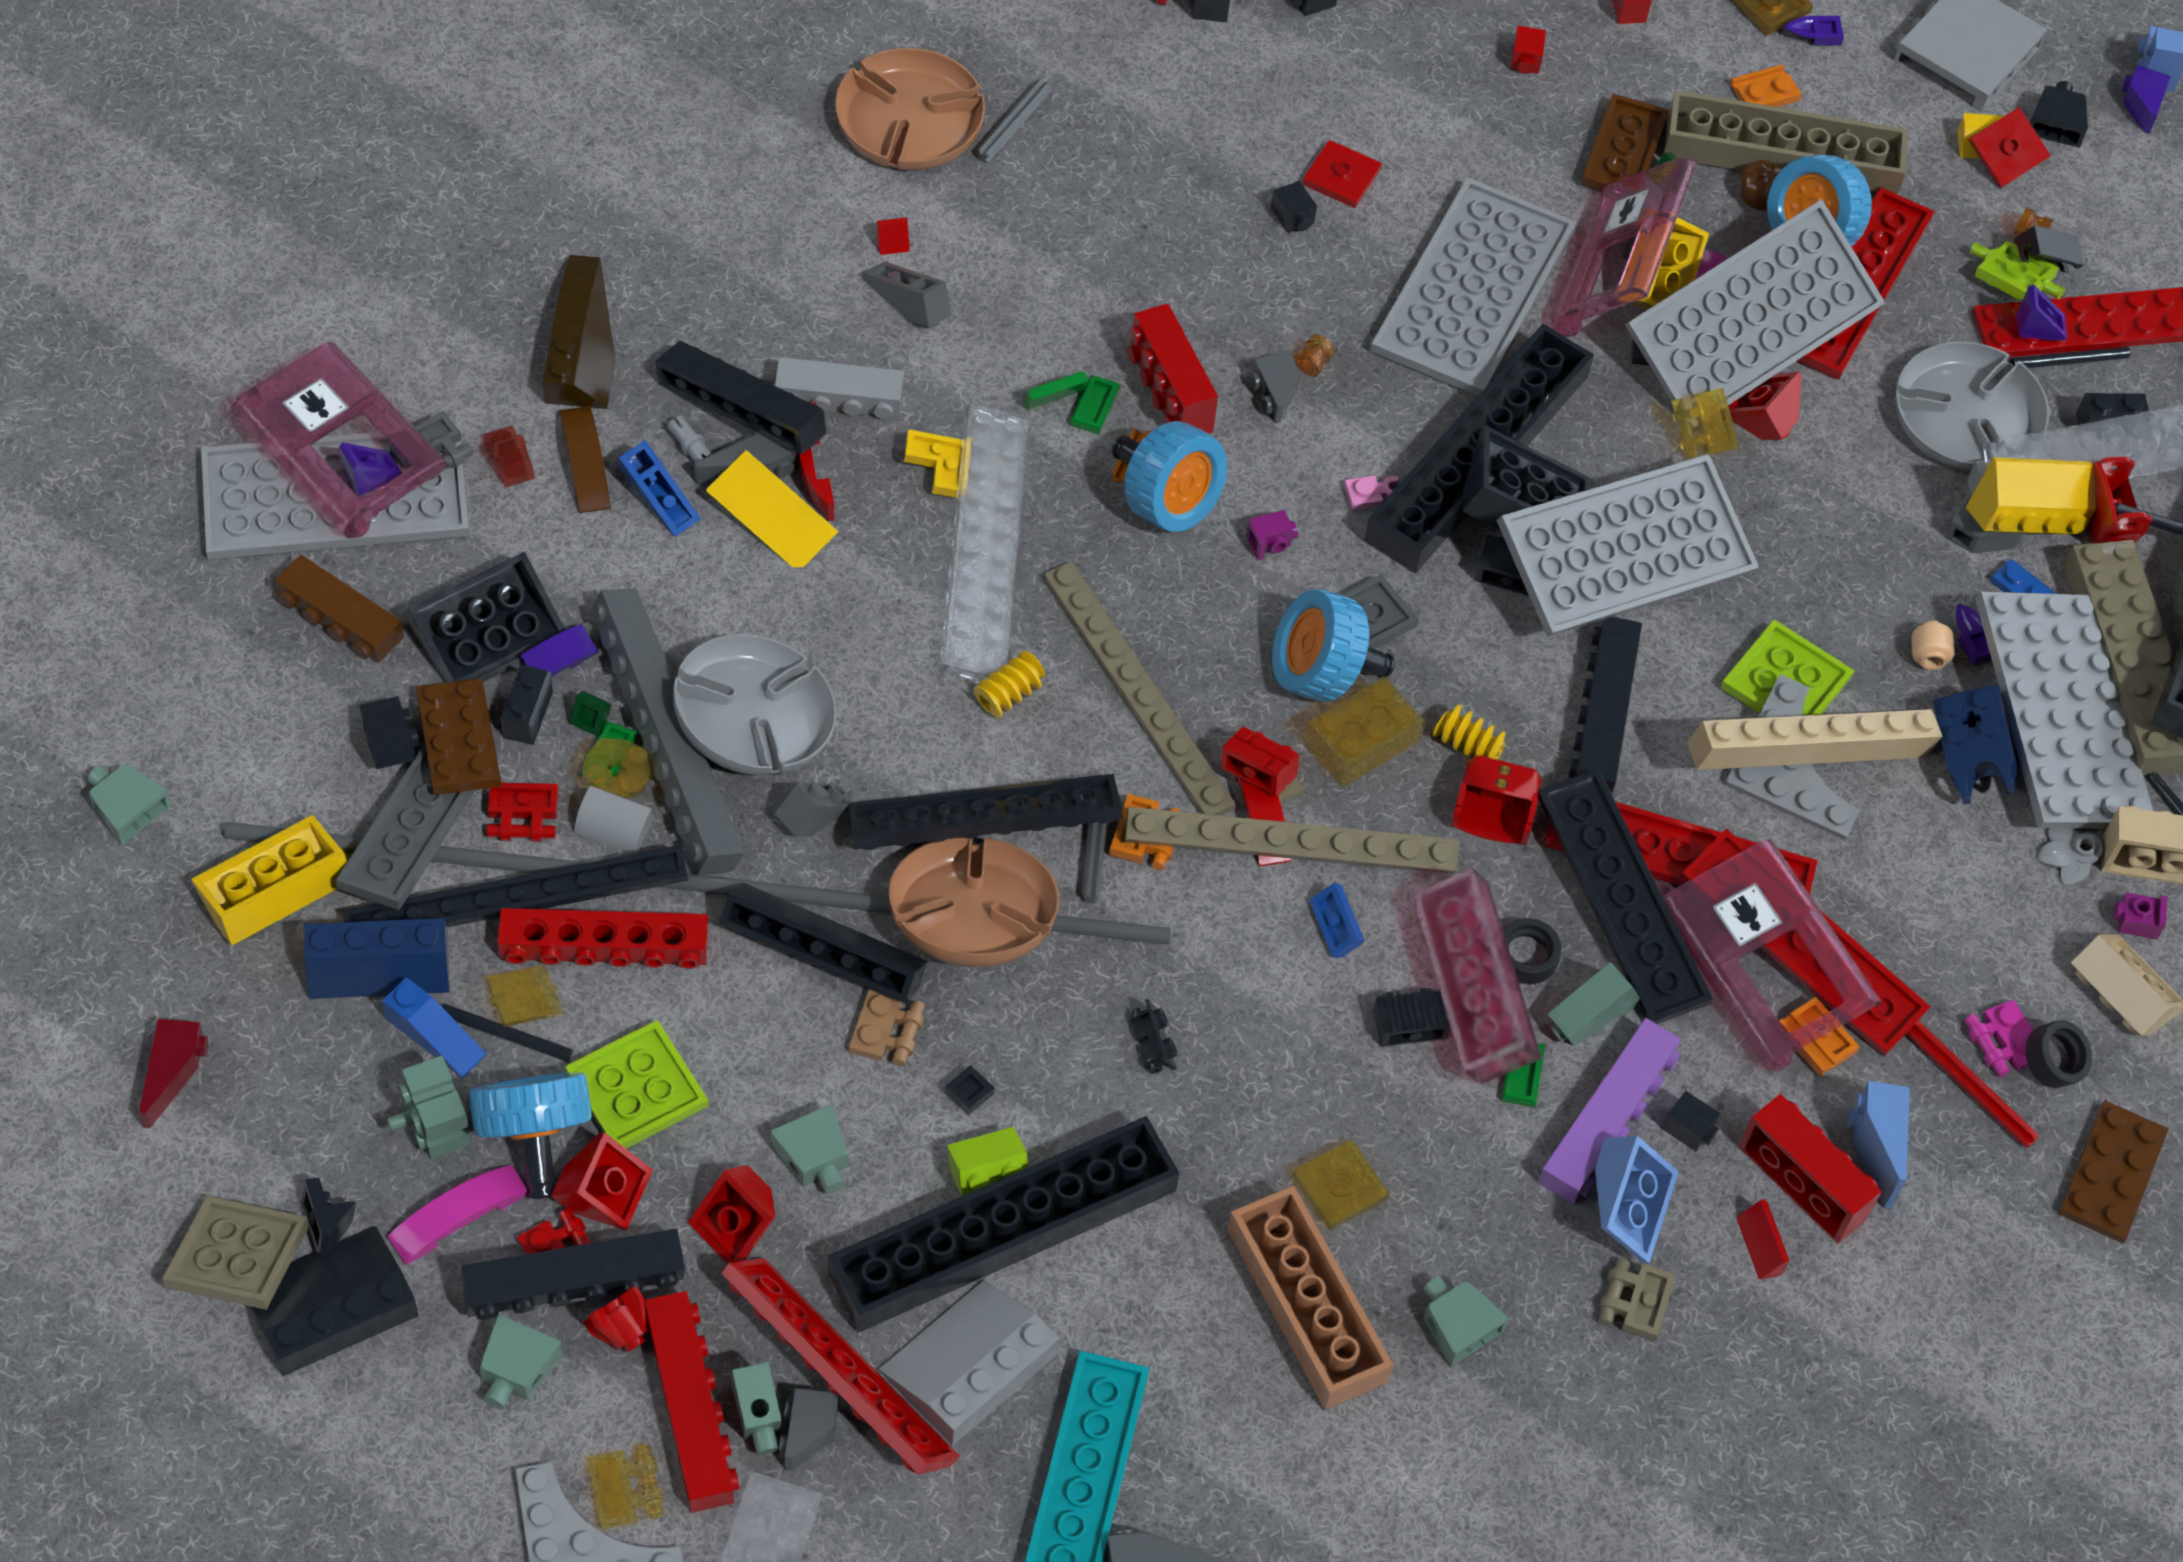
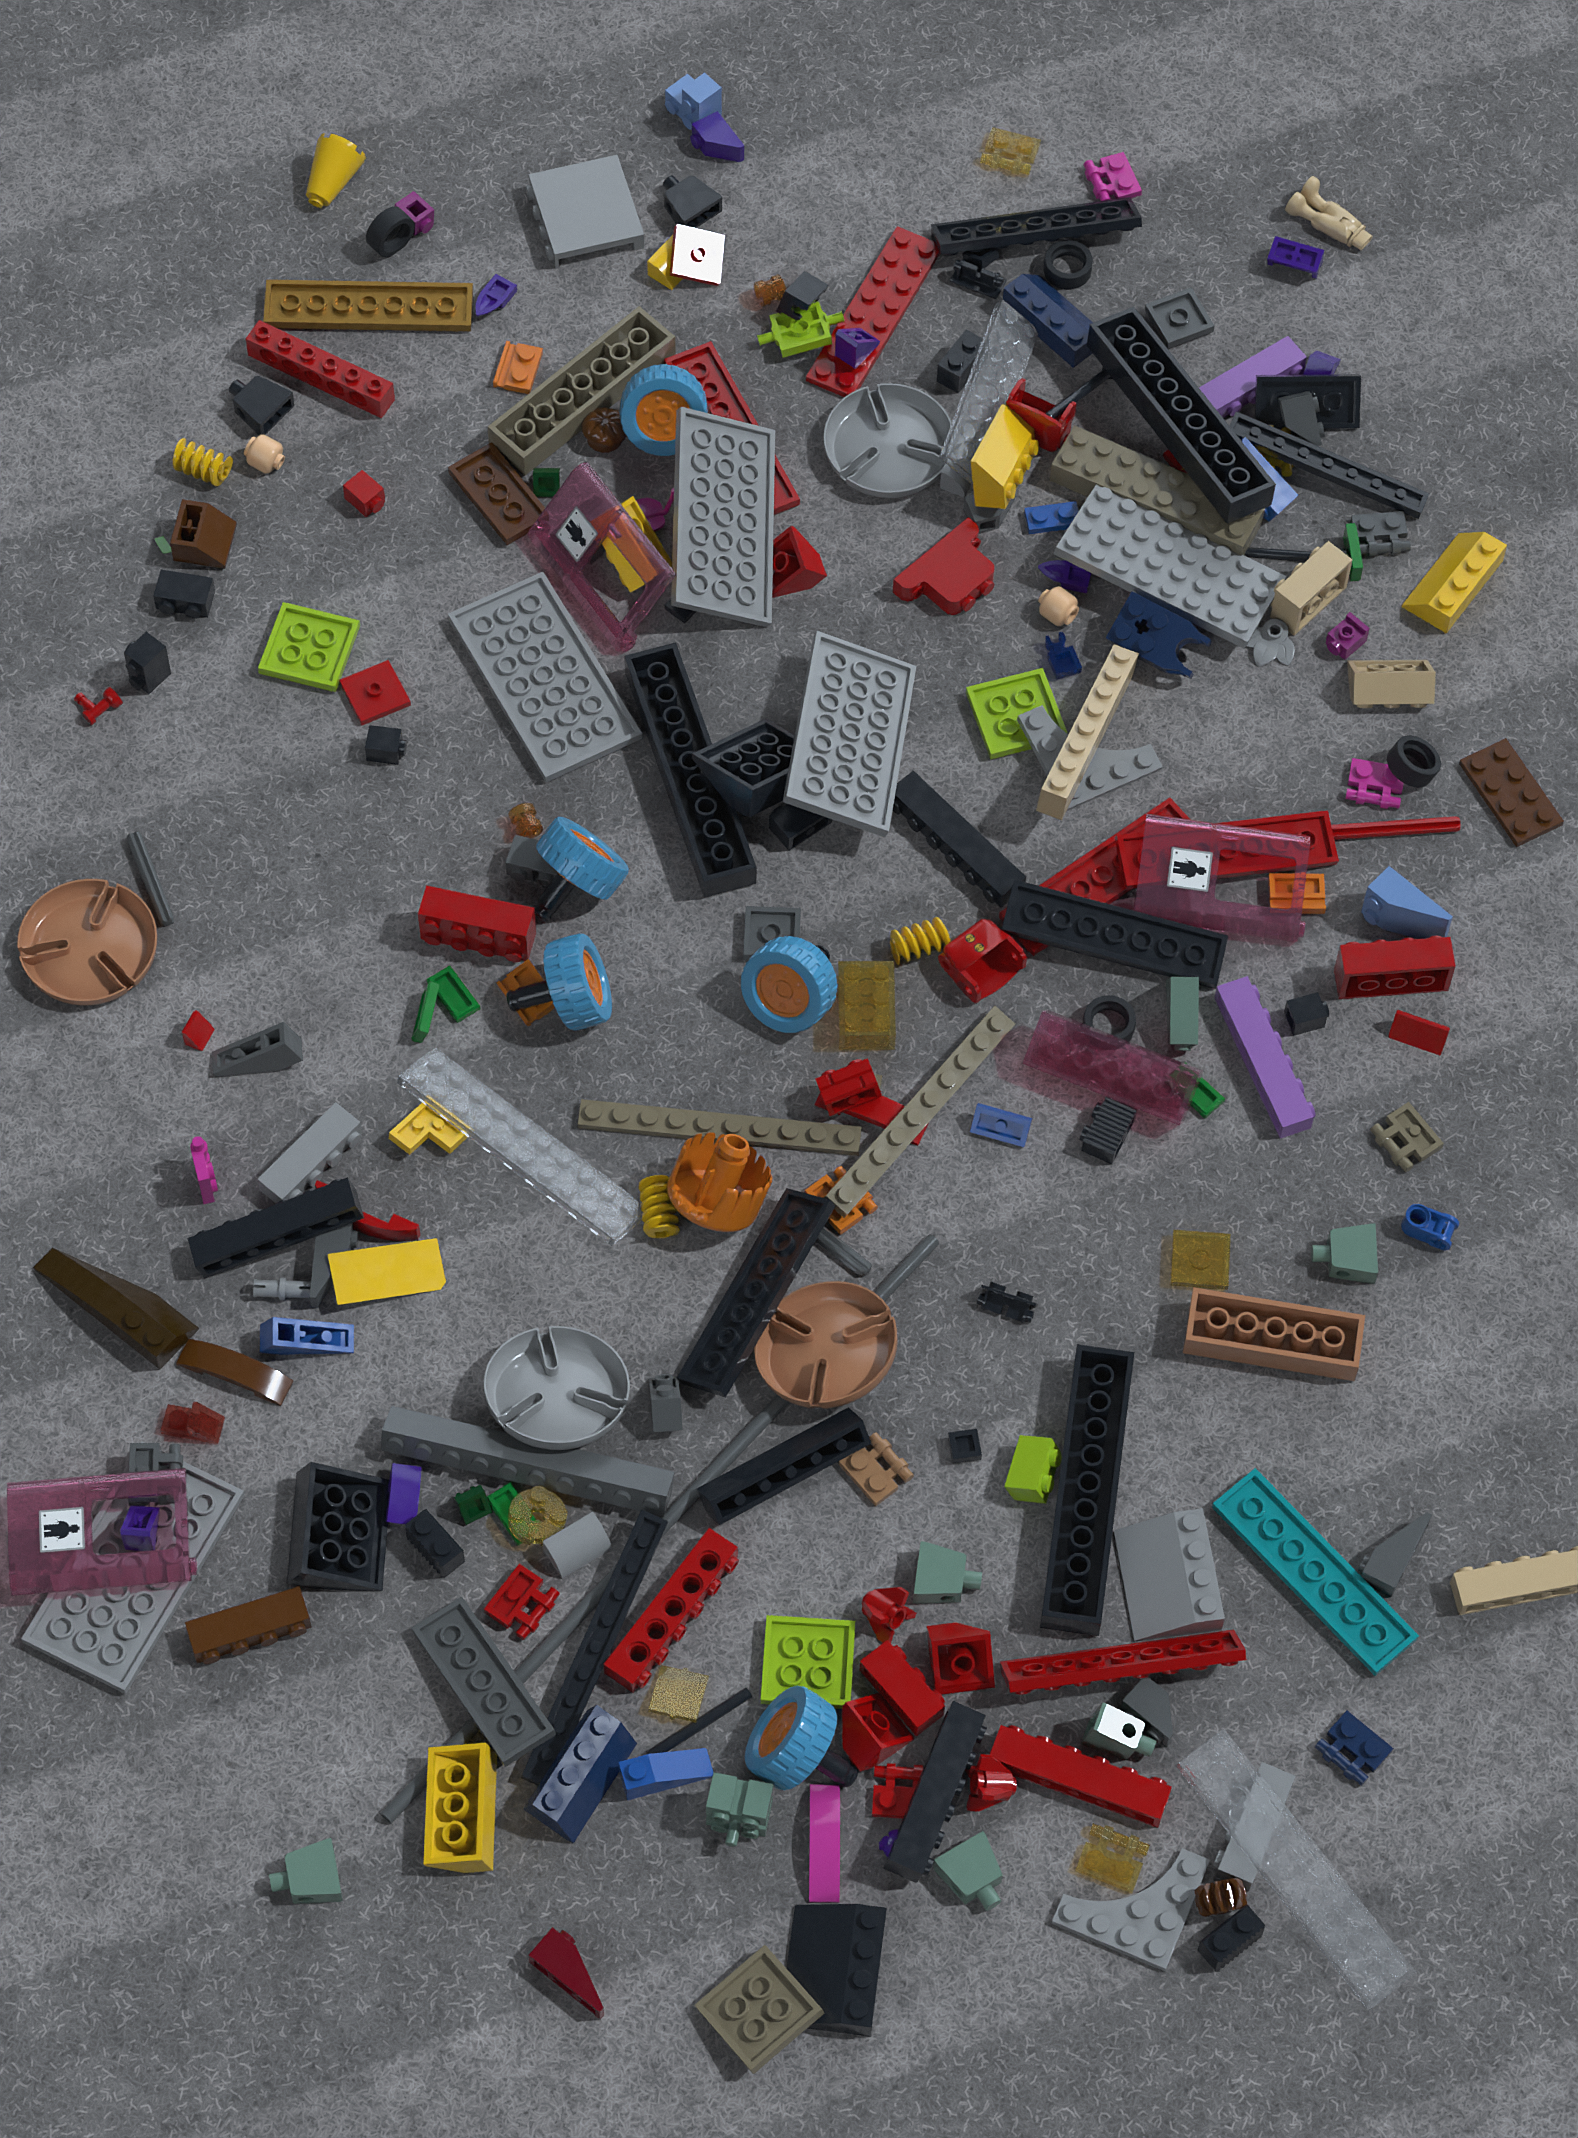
camera: 50 degrees left, 5 degrees up
(326, 1220) = (776, 1934): black slope -> none
(389, 732) = (391, 1653): black brick -> none
(458, 736) = (429, 1607): reddish brown plate -> none
(669, 1181) = (903, 1687): none -> red brick
(737, 1121) = (886, 1610): none -> red brick
(752, 311) = (203, 1169): none -> dark pink plate
(1065, 708) = (719, 1182): none -> orange piece
(1271, 533) = (657, 954): magenta brick -> none
(1299, 407) = (580, 862): none -> dark azure wheel
(1341, 99) = (309, 647): none -> lime plate
(1367, 492) = (667, 868): bright pink plate -> none
(1555, 1384) = (1431, 1227): none -> blue piece
(1633, 1193) = (1340, 1084): medium blue slope -> none
(1713, 421) = (782, 608): clear yellow plate -> none
(1882, 683) = (1062, 659): none -> clear blue plate
(1883, 536) = (949, 572): none -> red brick
(2073, 357) = (891, 349): black piece -> none

